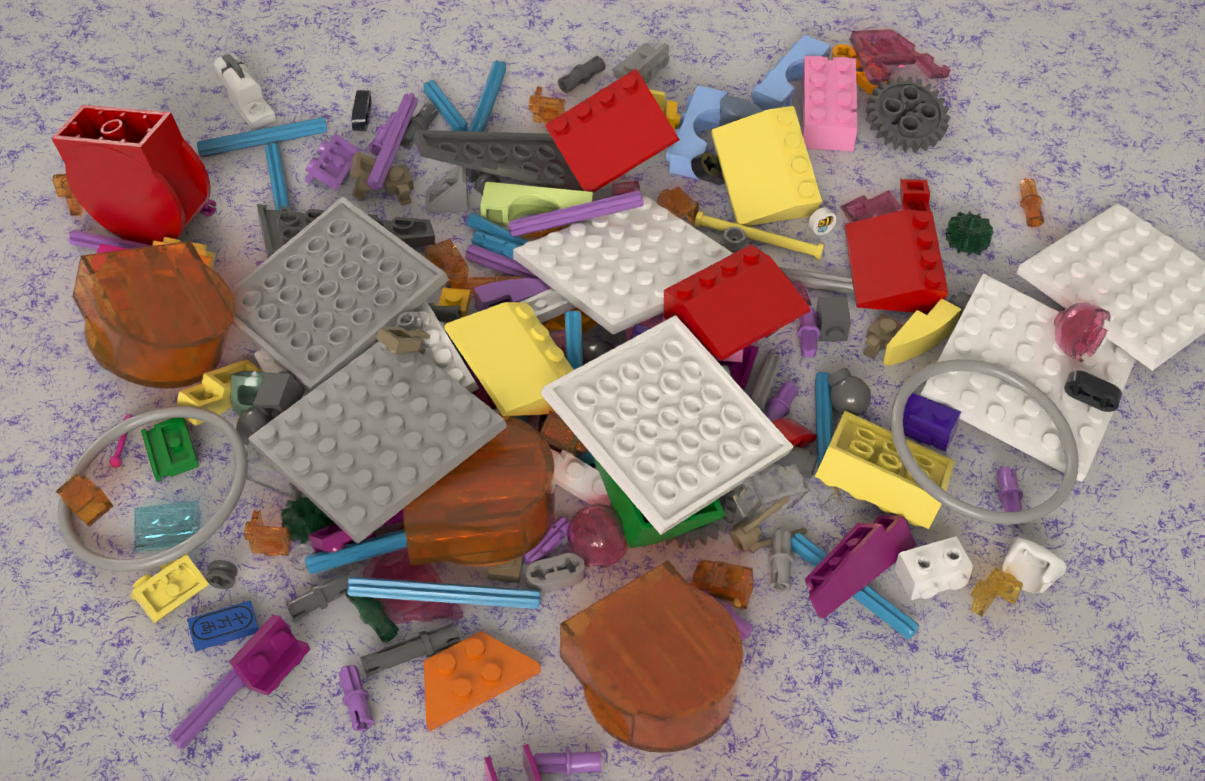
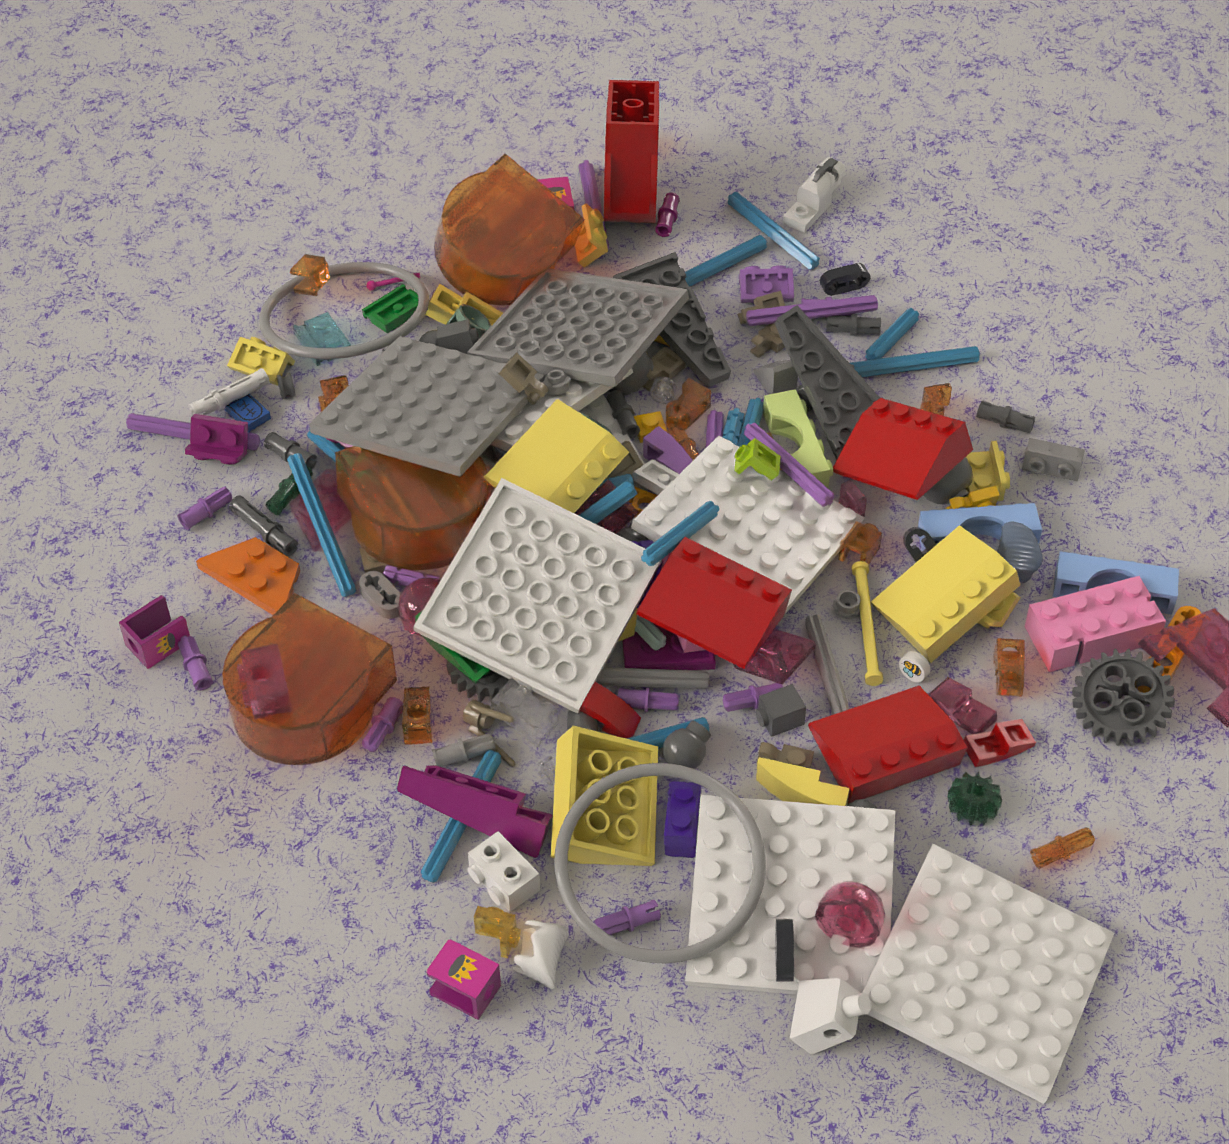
camera: 70 degrees right, 0 degrees up
(208, 637) = (220, 398): none -> white pin
(567, 228) = (759, 457): none -> lime bracket
(654, 294) = (685, 528): none -> dark azure axle
(668, 659) = (265, 681): none -> clear pink brick
(849, 166) = (1009, 667): none -> clear orange leg
(1045, 631) = (464, 979): none -> piece
(1155, 386) = (826, 1013): none -> white torso

